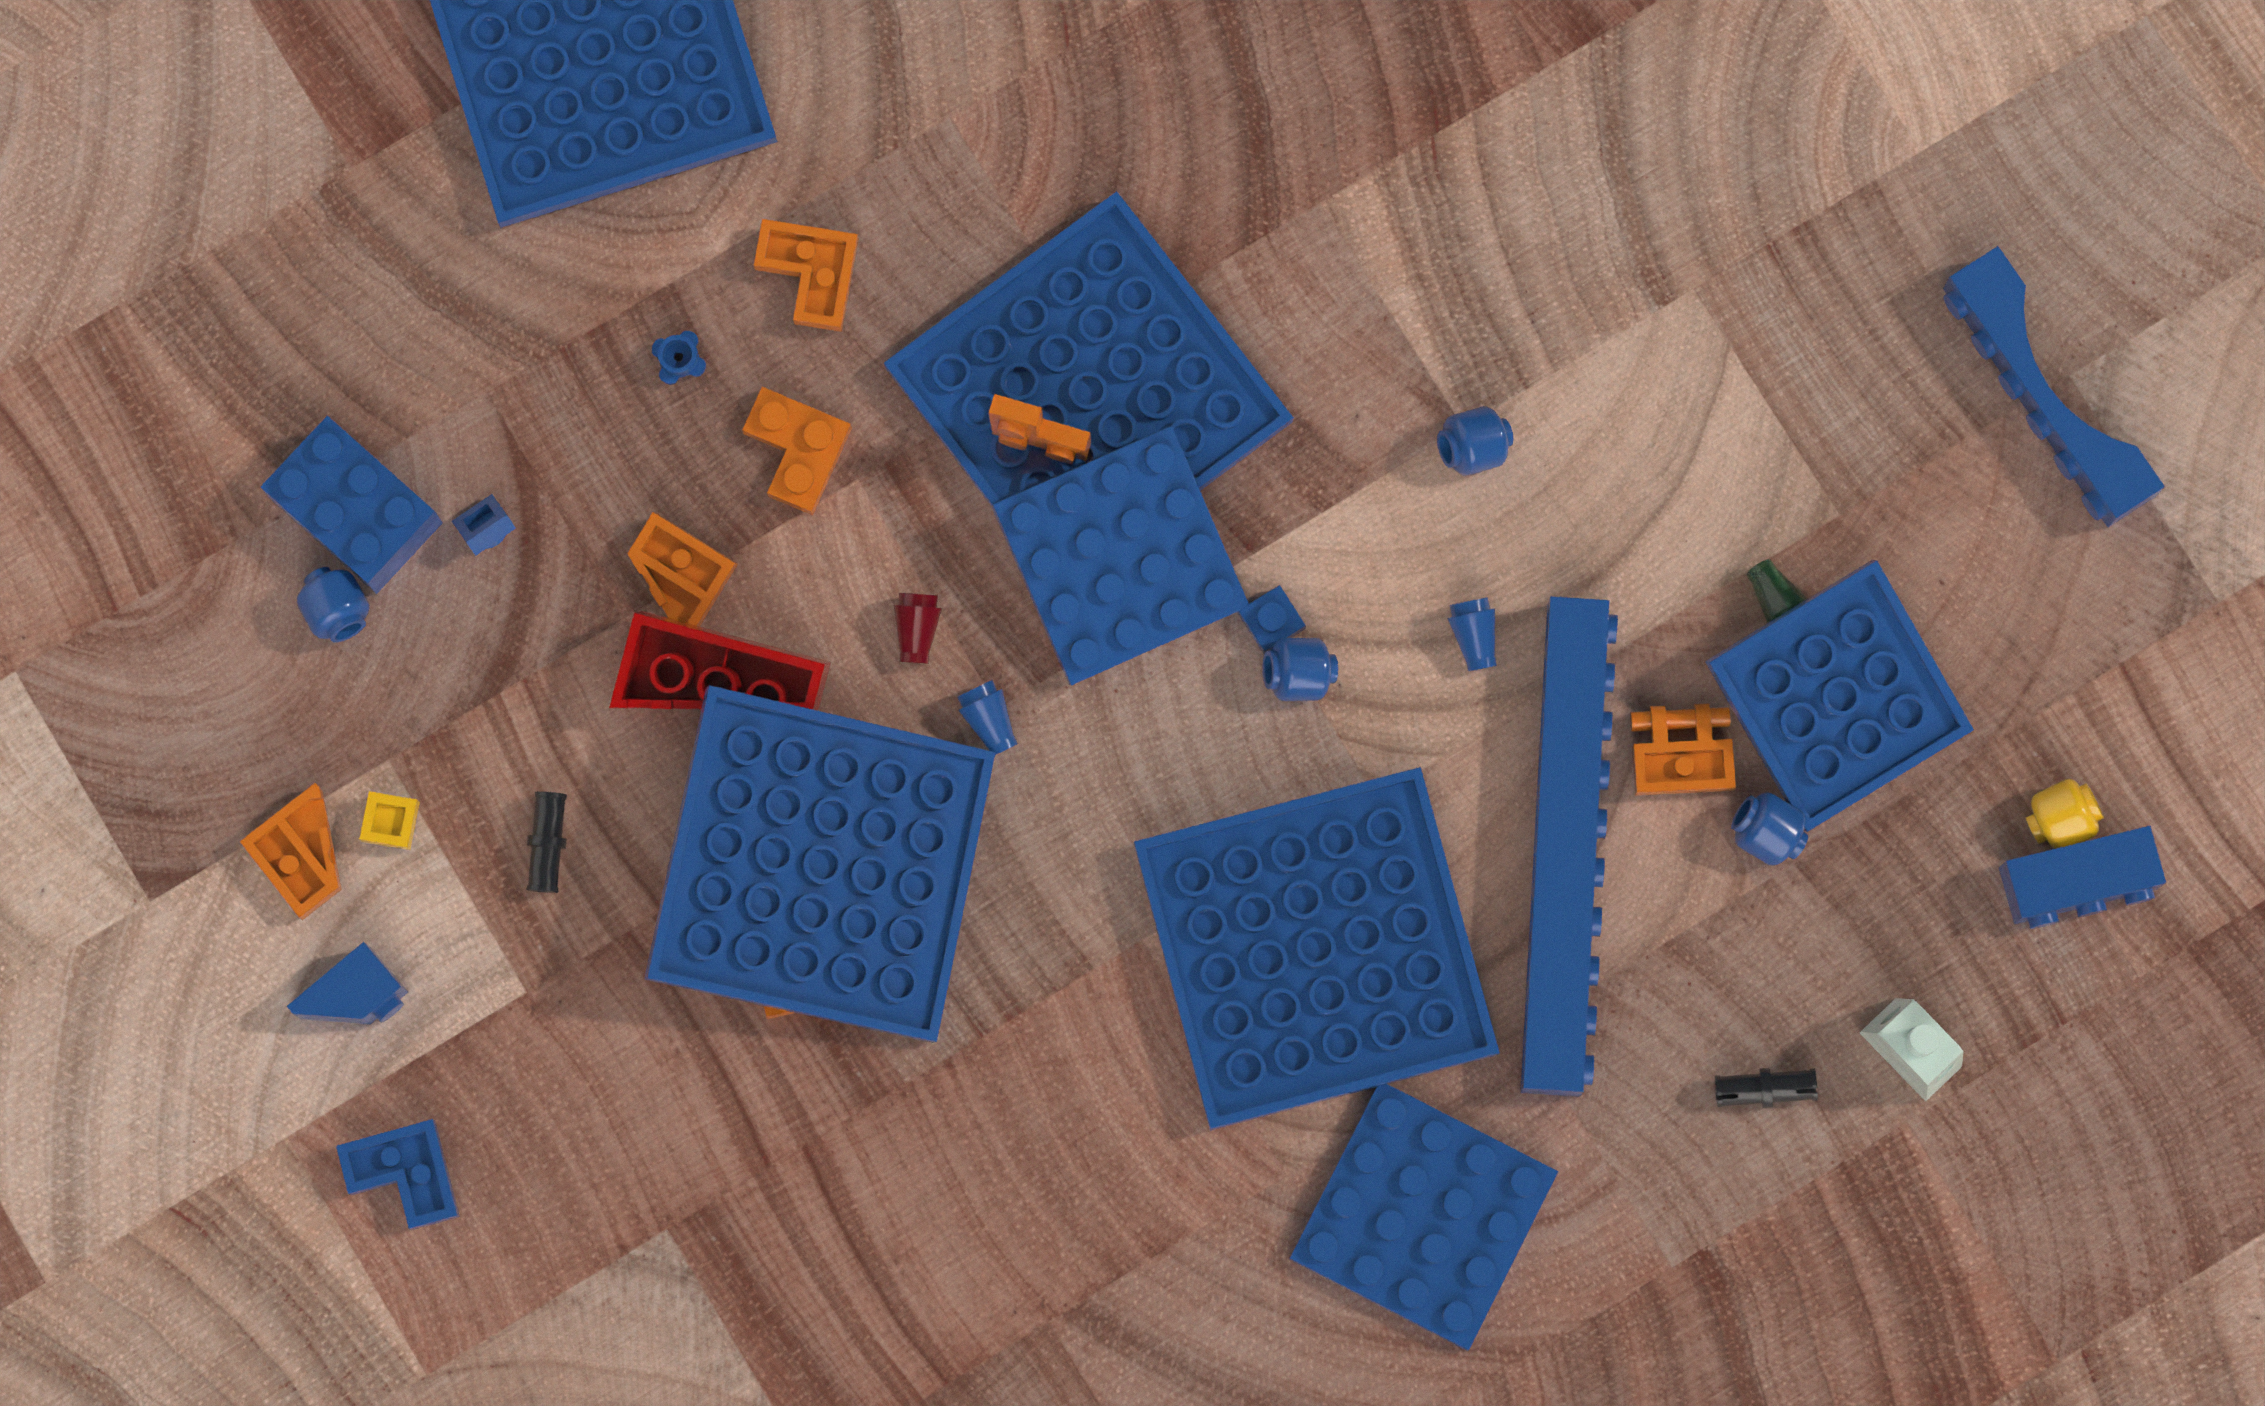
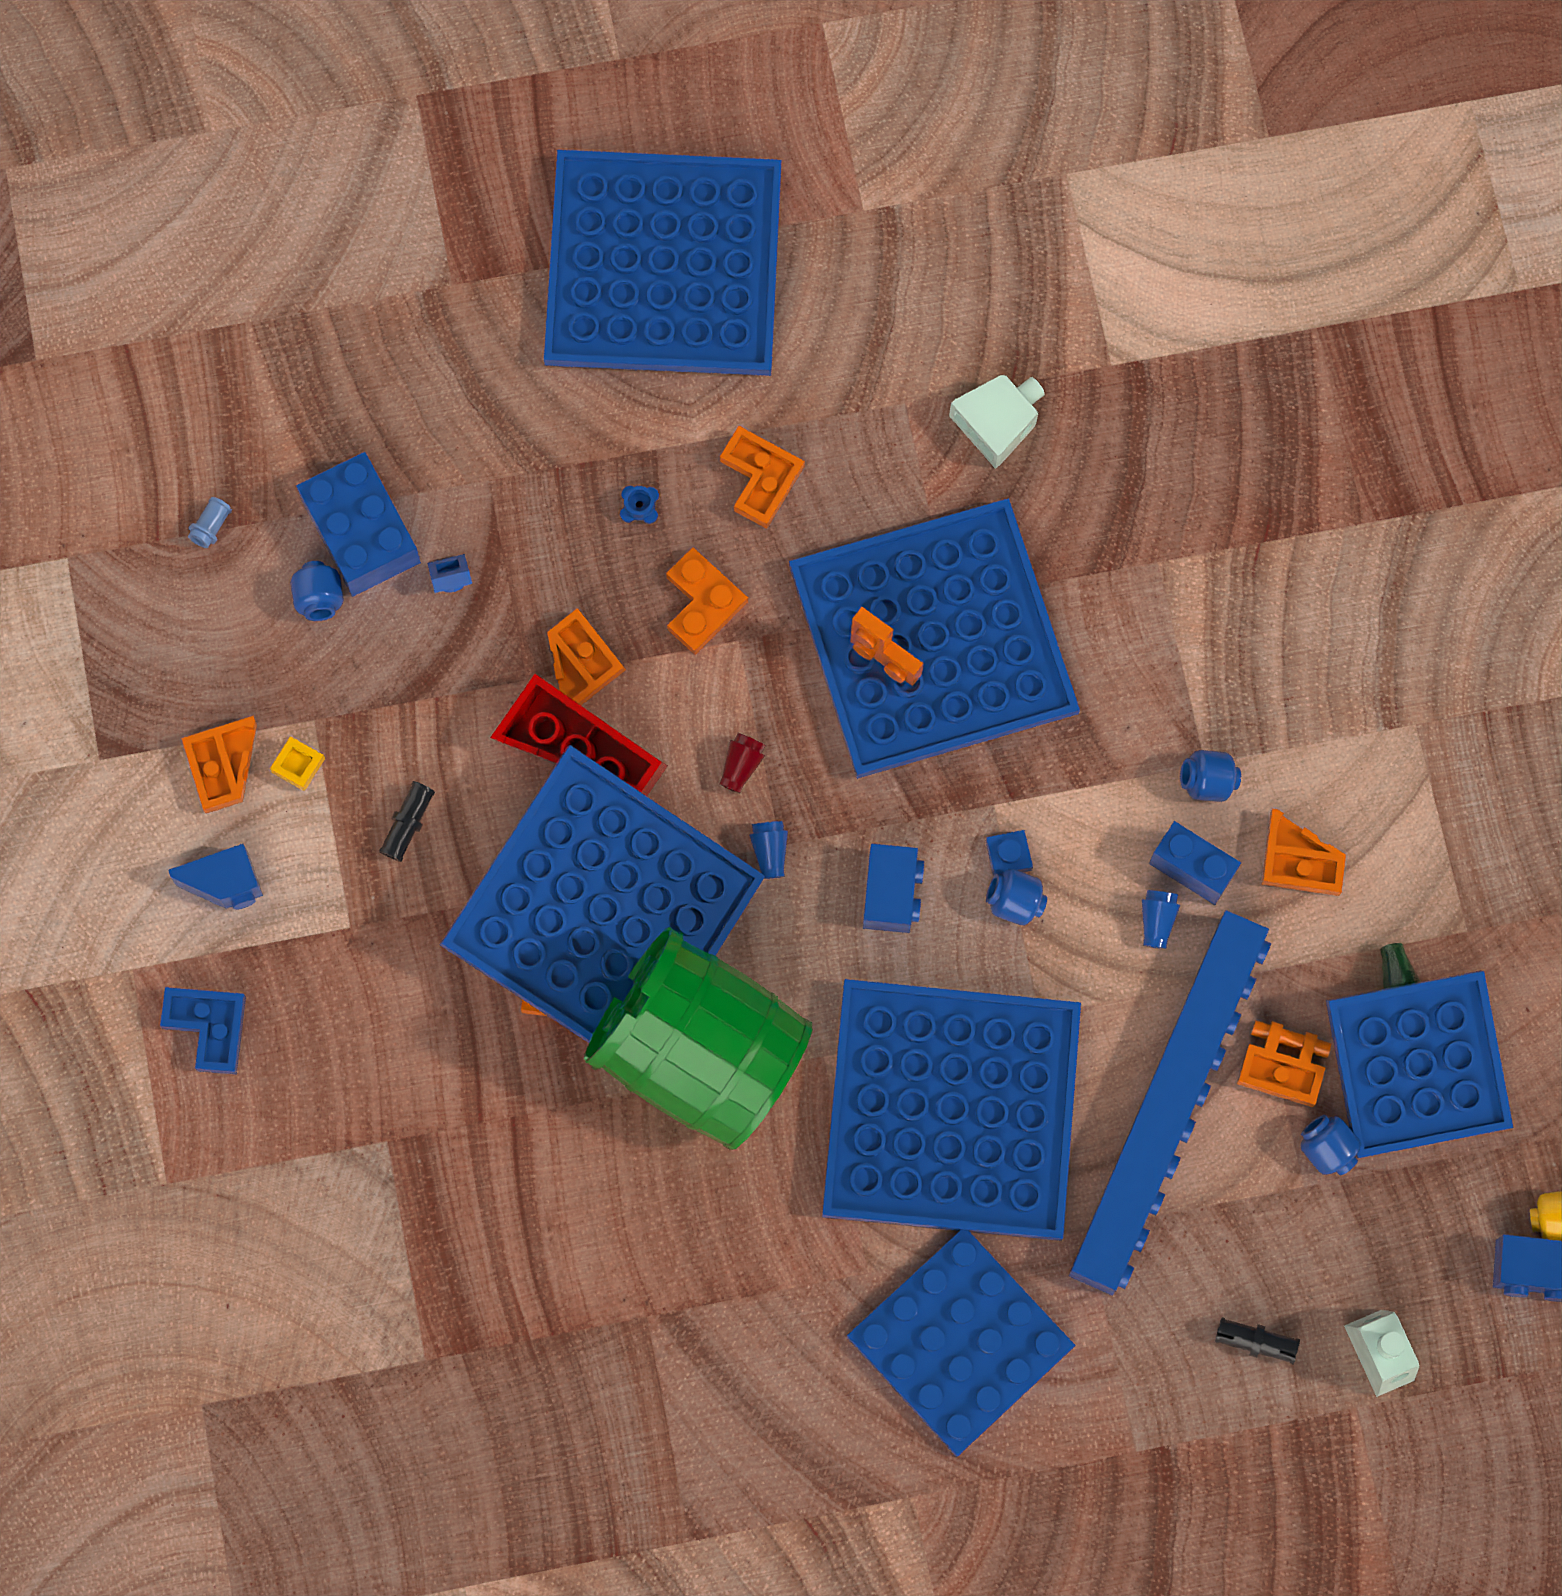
camera: 15 degrees right, 5 degrees down
(171, 567) = (209, 523): none -> medium blue pin
(994, 981) = (700, 1041): none -> green piece
(1067, 94) = (997, 415): none -> light aqua torso
(1120, 555) = (912, 763): blue plate -> none
(1149, 712) = (890, 888): none -> blue brick
(1494, 552) = (1194, 863): none -> blue brick
(1615, 502) = (1300, 860): none -> orange wing

